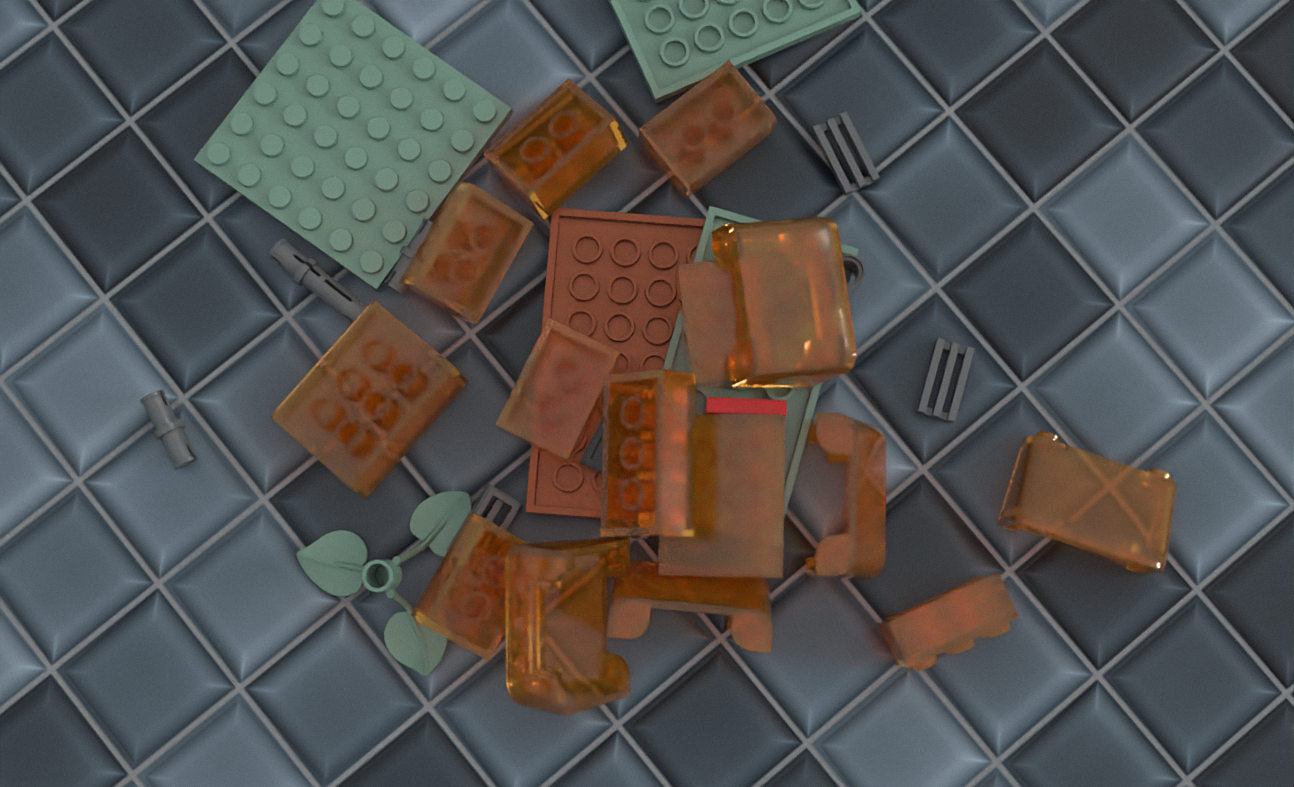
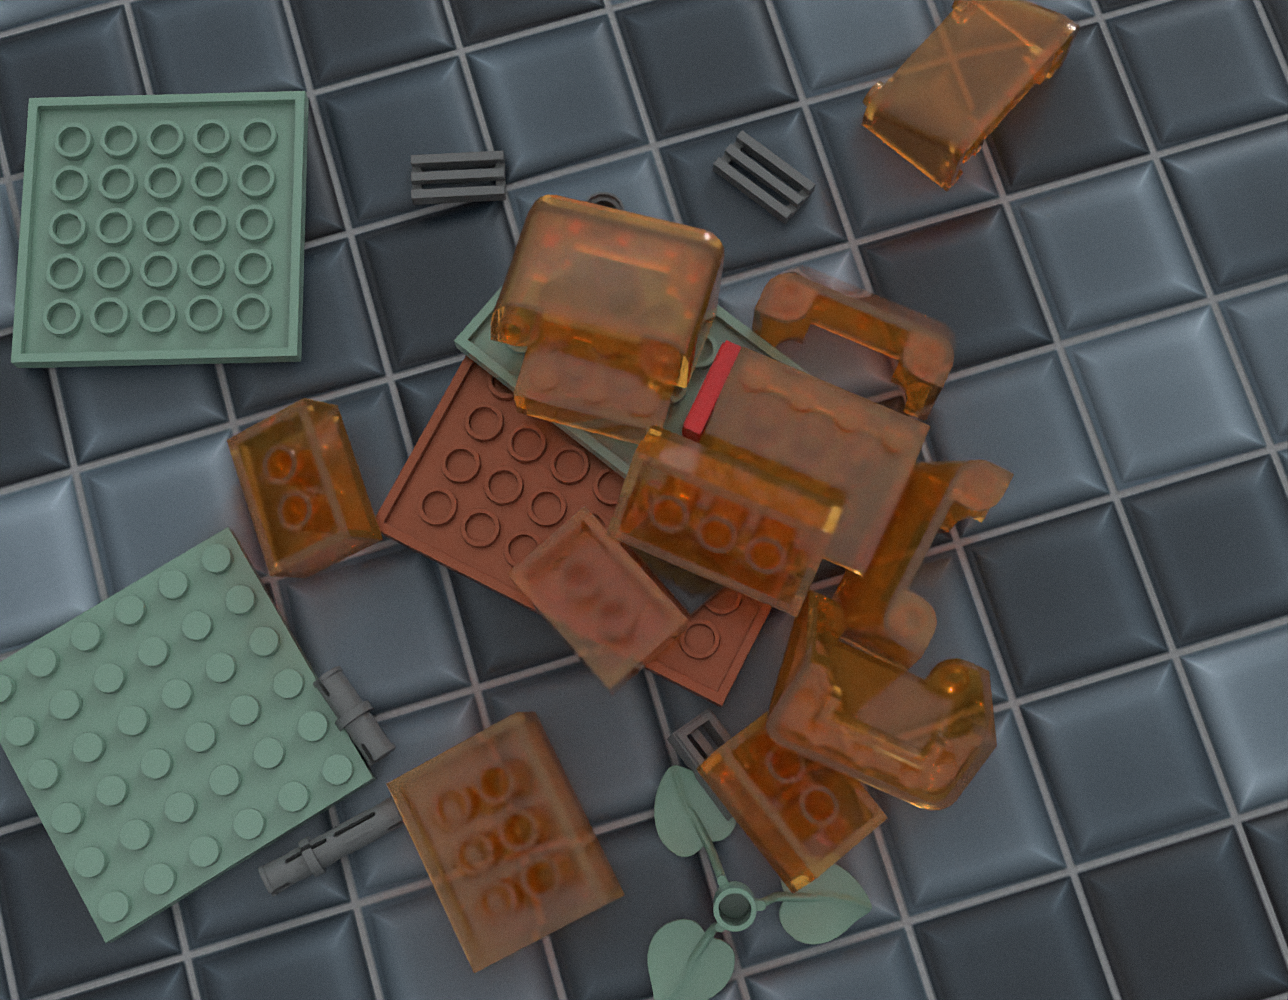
camera: 60 degrees left, 5 degrees down
(466, 252) = (380, 645): clear orange brick -> none
(707, 129) = (361, 311): clear orange brick -> none
(948, 622) = (1043, 277): clear orange brick -> none

